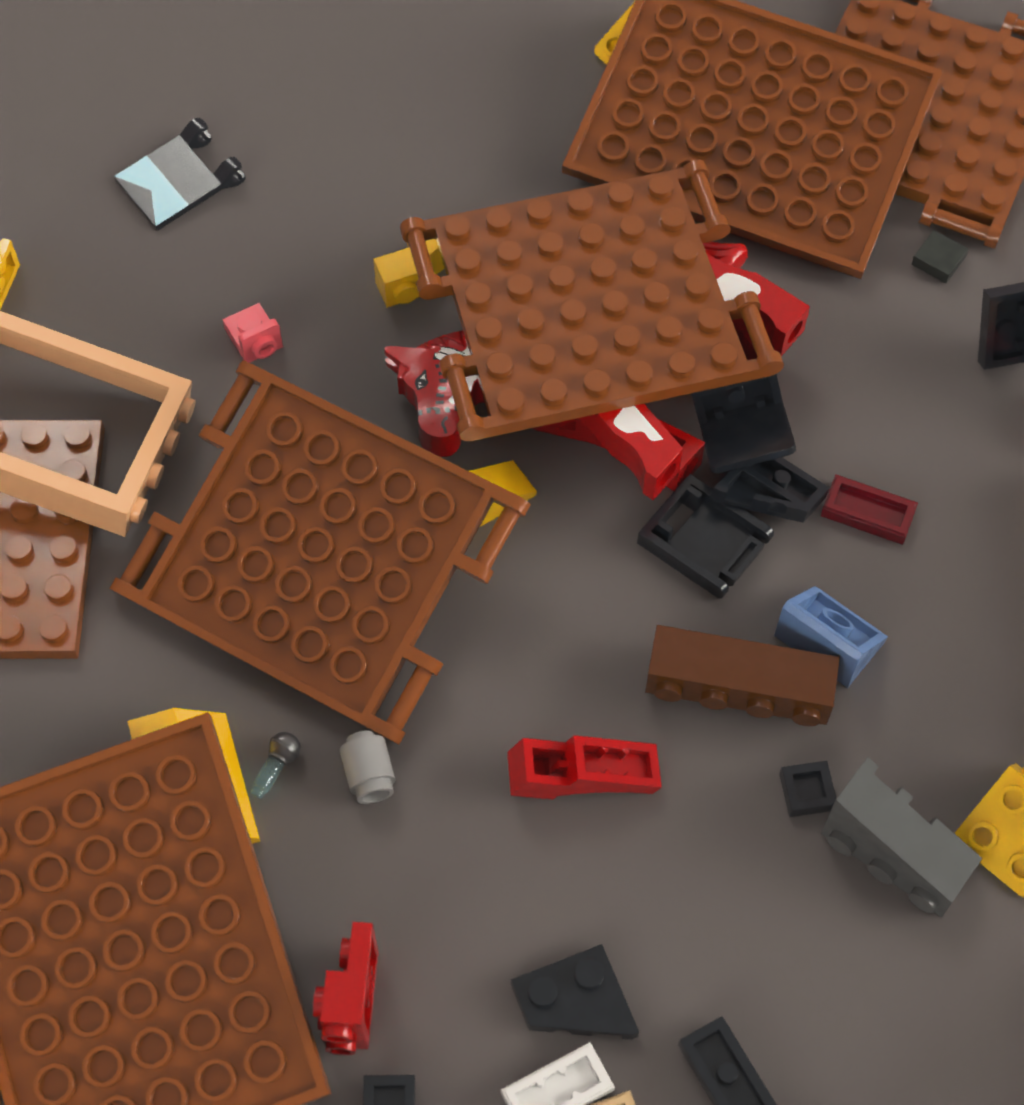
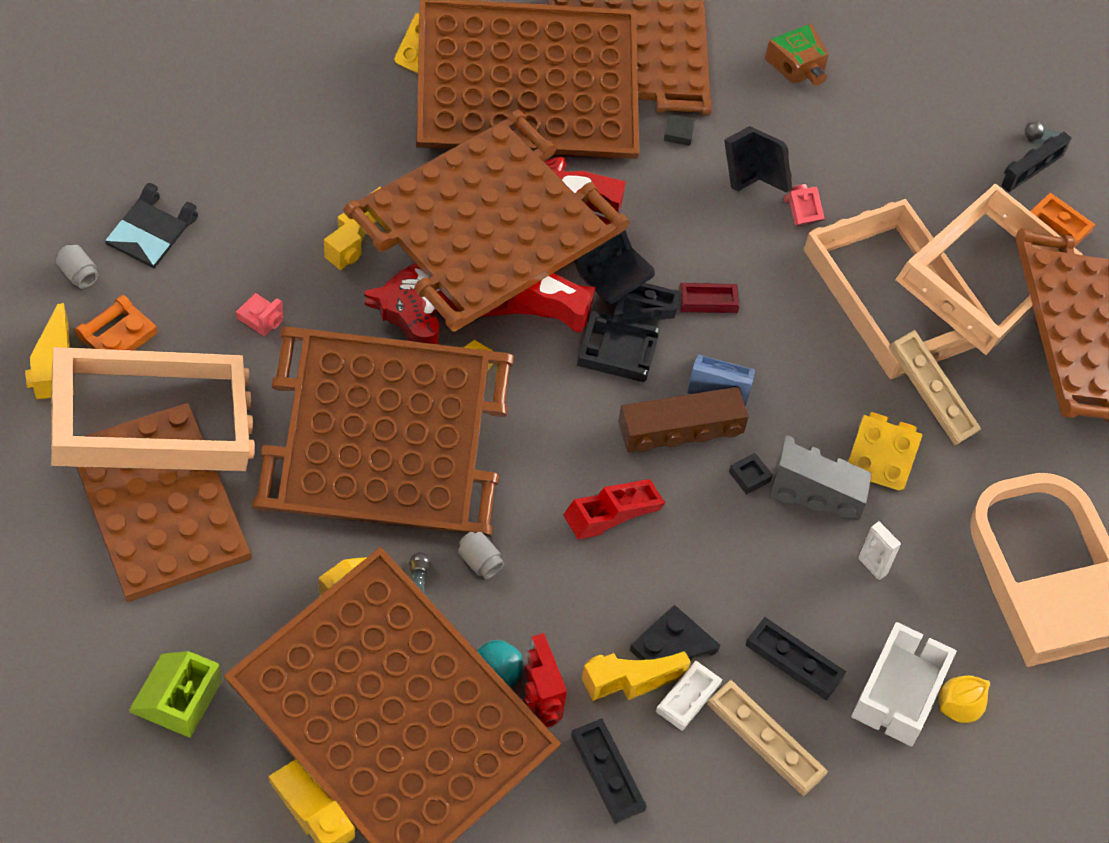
camera: 30 degrees left, 5 degrees down
(60, 198) = (77, 266): none -> light grey brick
(72, 306) = (124, 335): none -> orange plate
(313, 934) = (504, 660): none -> teal hair
(454, 1013) = (636, 677): none -> yellow slope
(938, 984) = (879, 550): none -> white plate

